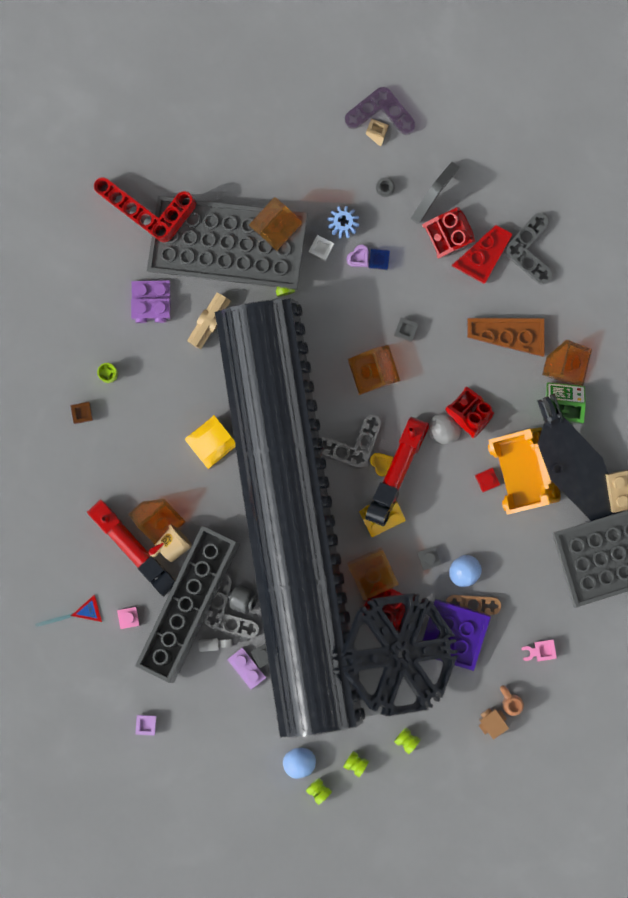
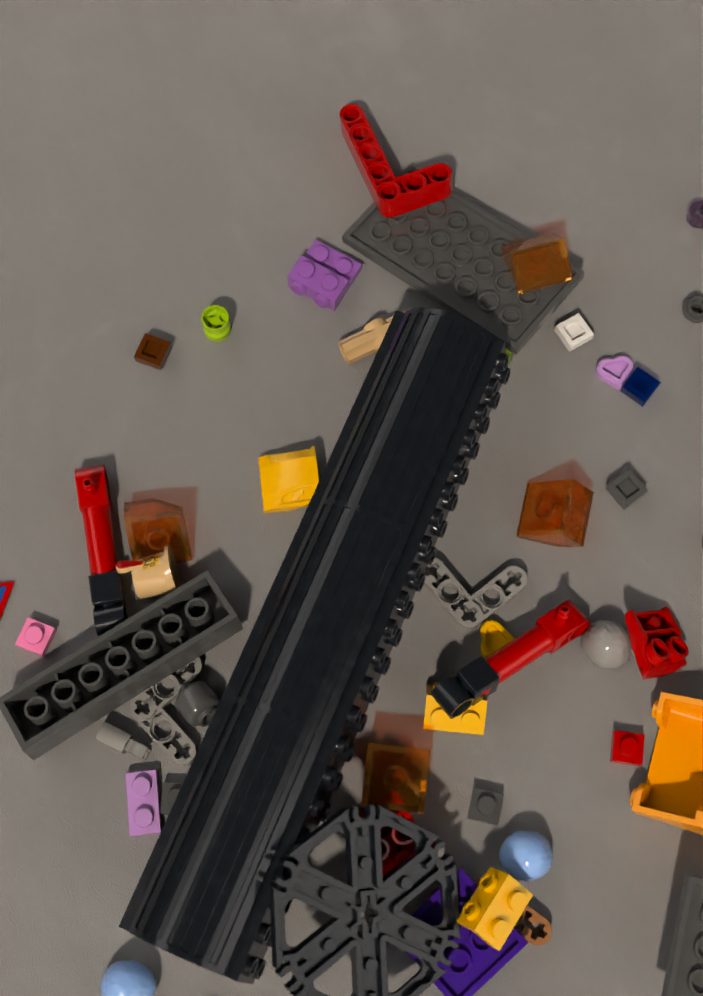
camera: 25 degrees right, 15 degrees down
(349, 219) = (615, 308): light blue gear -> none
(463, 610) = (495, 907): none -> yellow bracket

